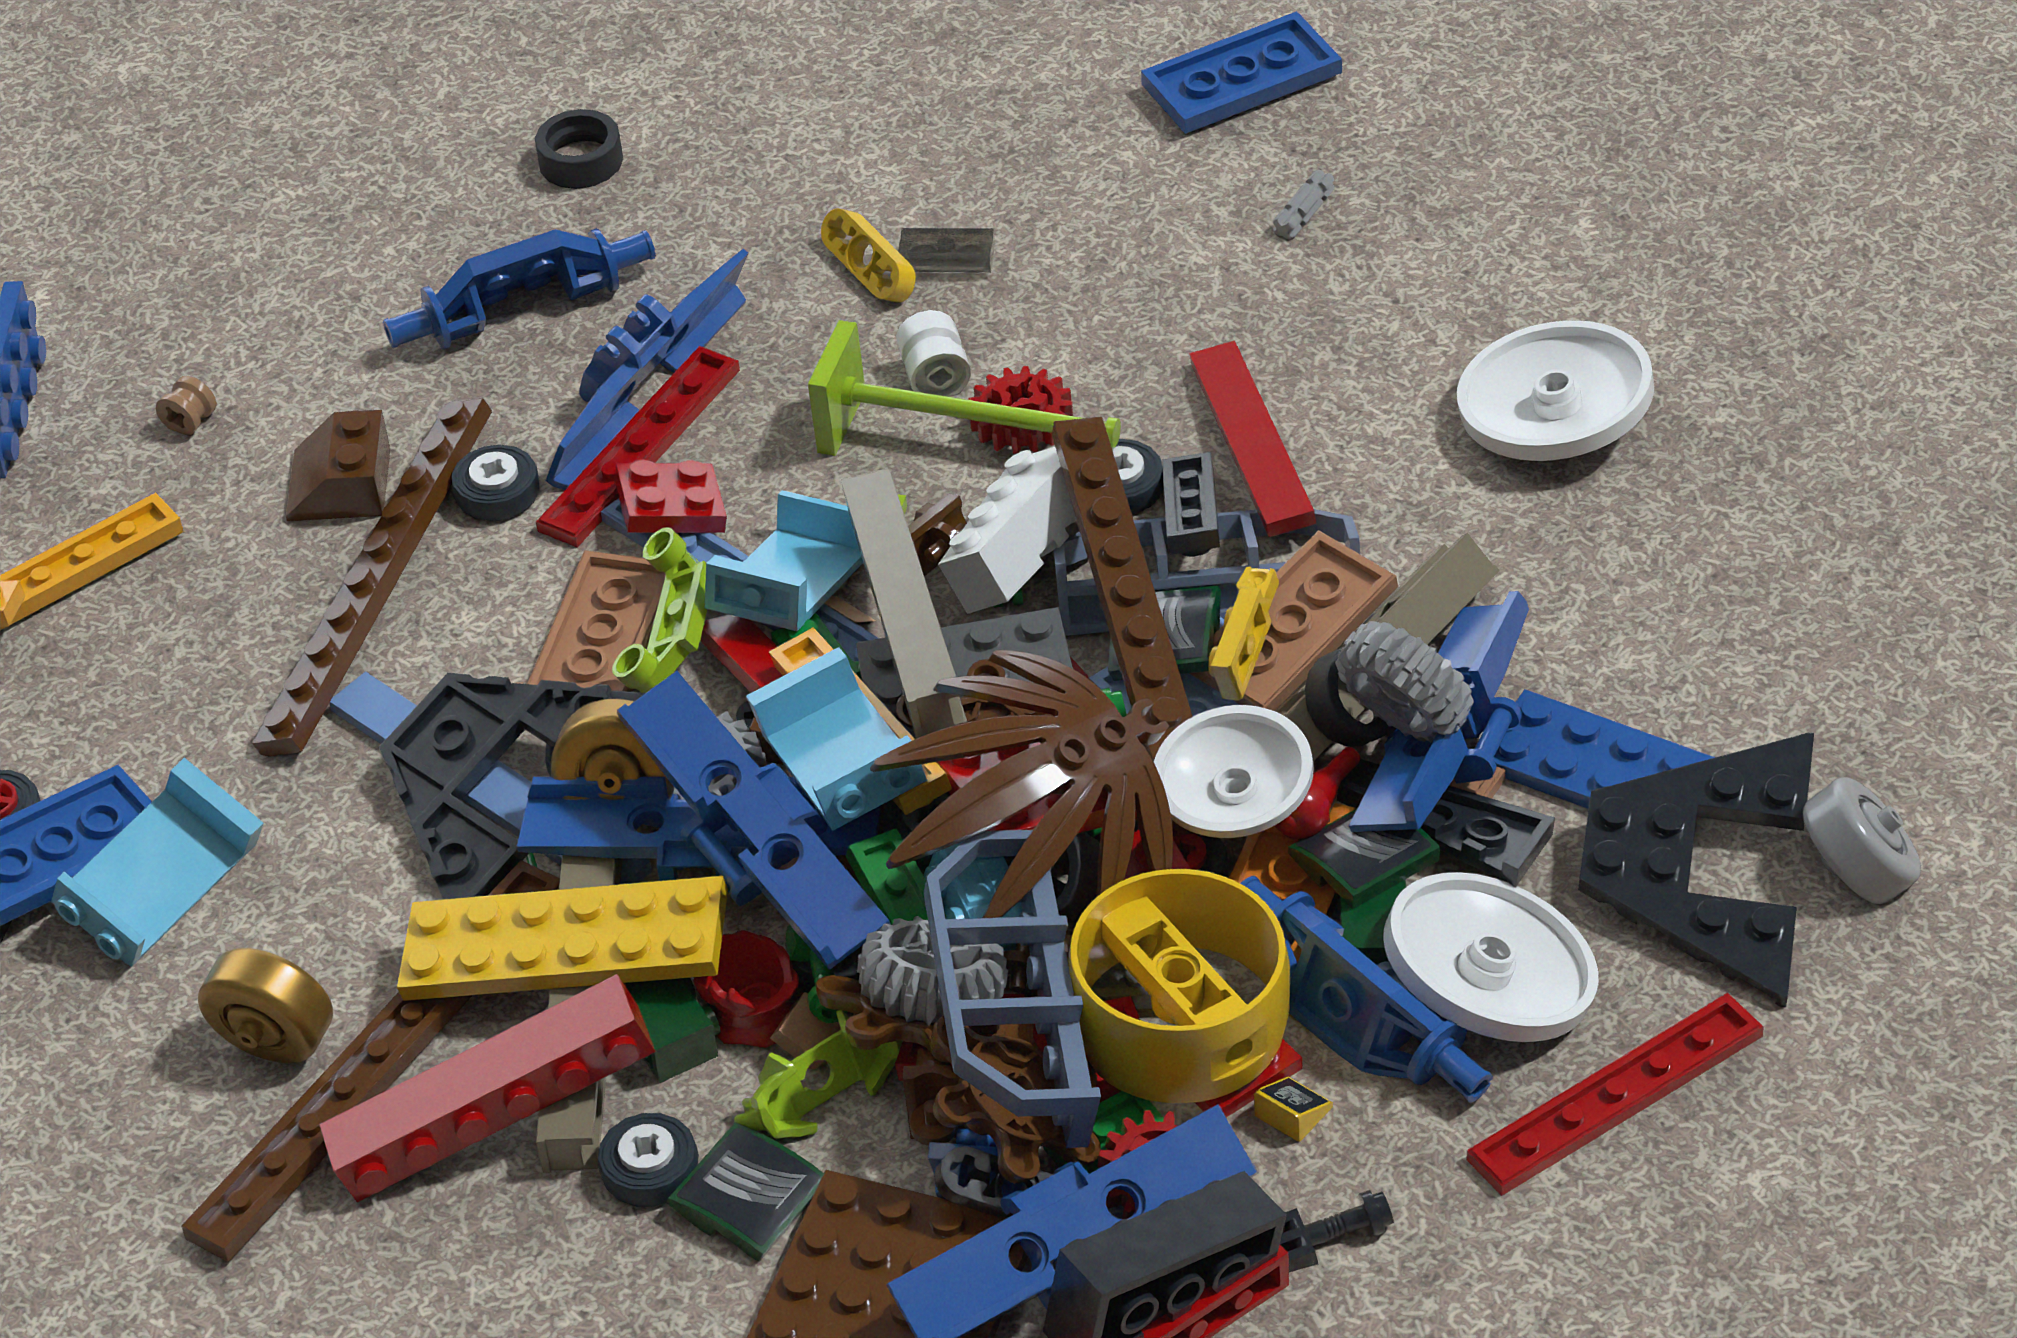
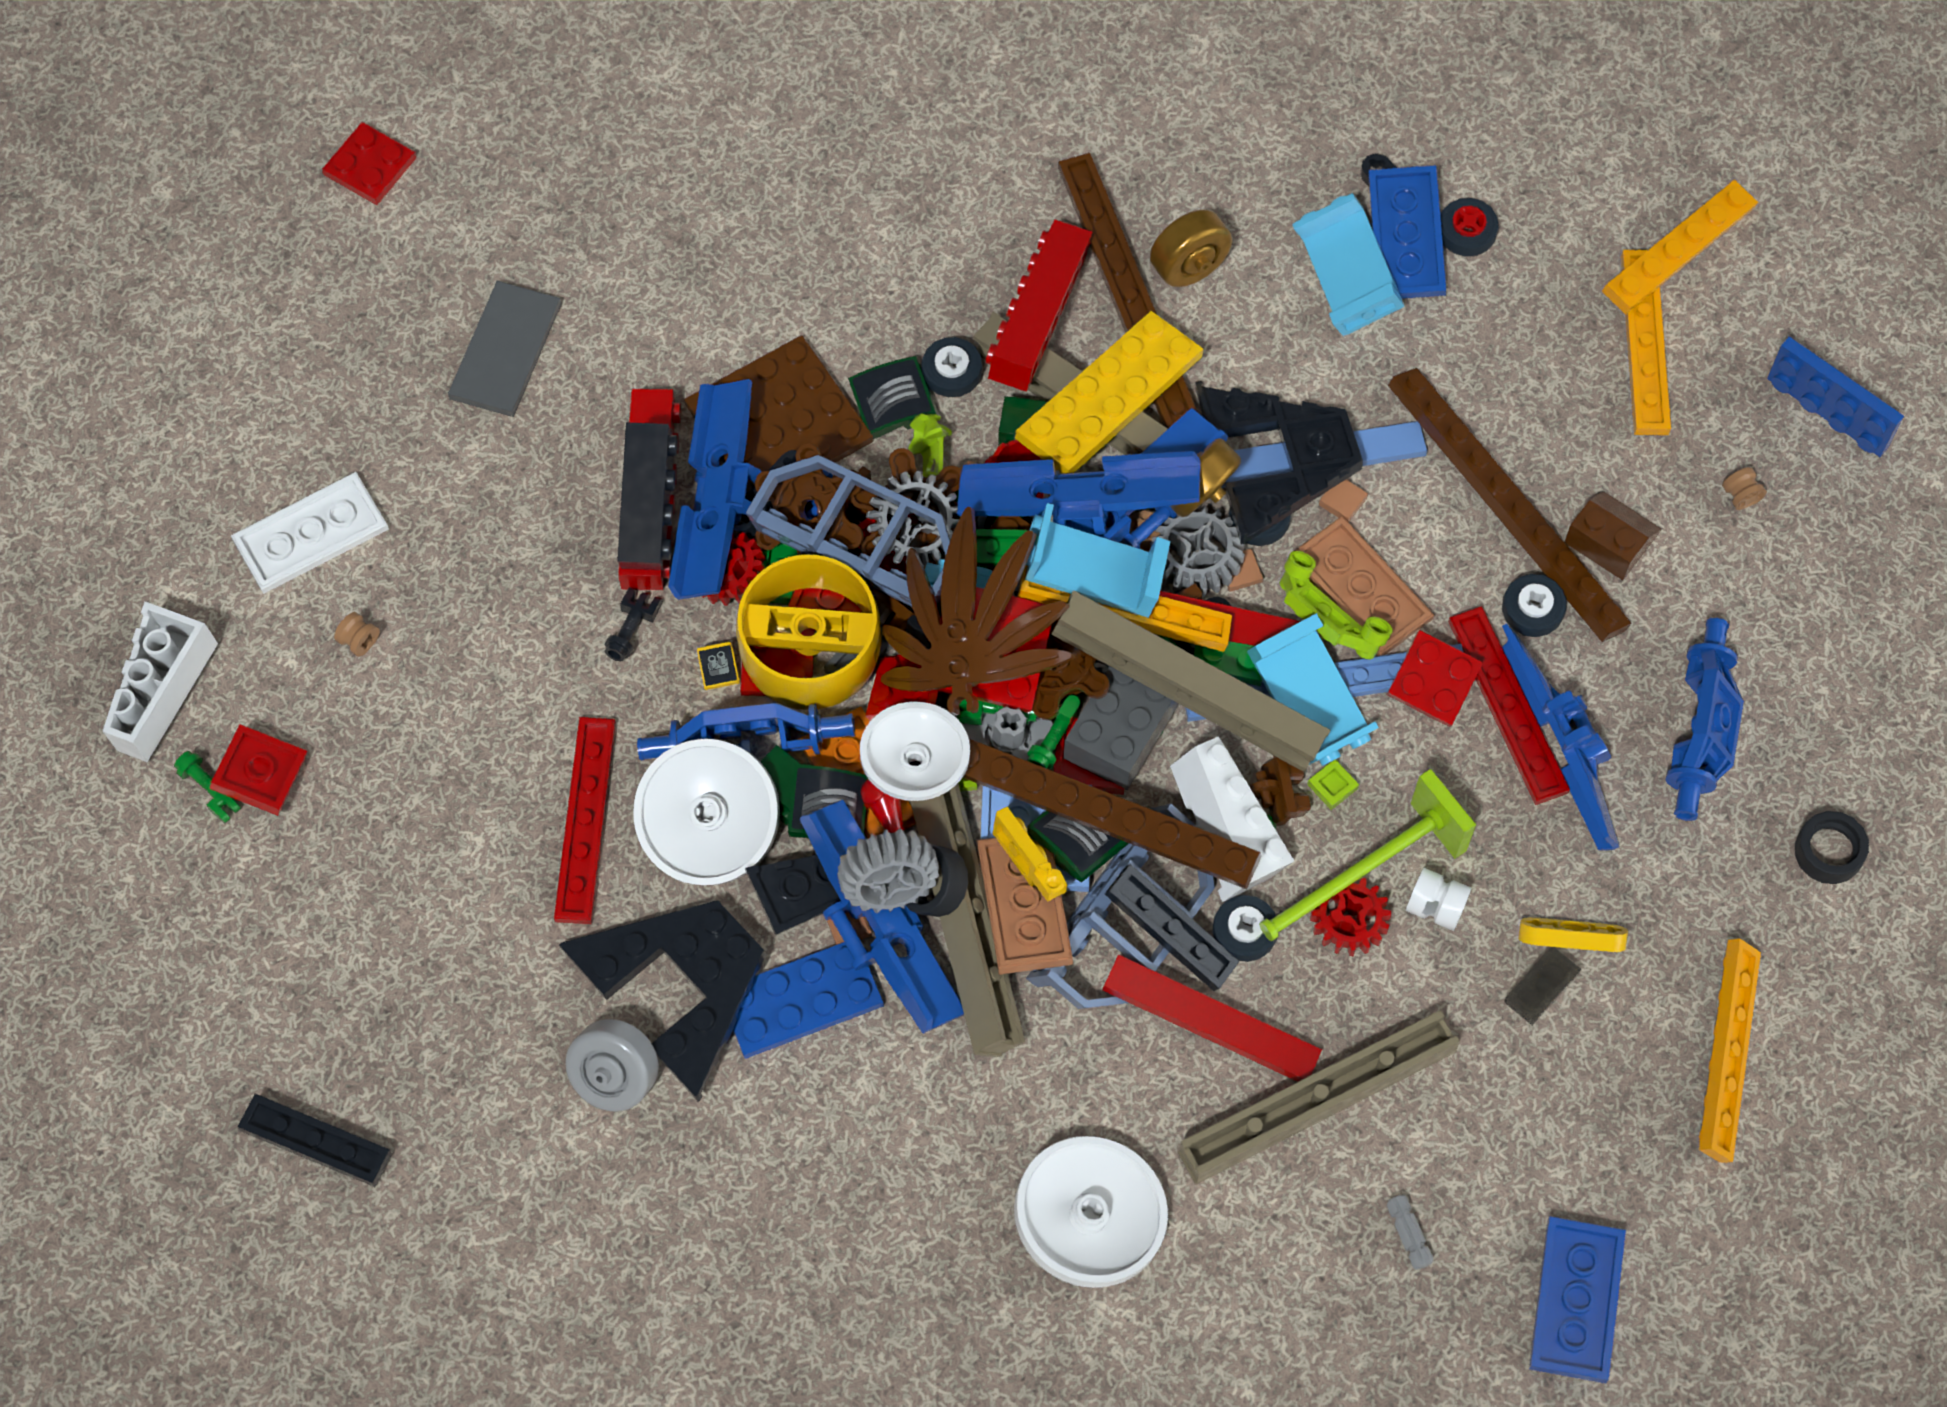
camera: 125 degrees right, 20 degrees up
(861, 112) = (1729, 1051): none -> light orange plate
(1260, 324) = (1317, 1097): none -> dark tan tile

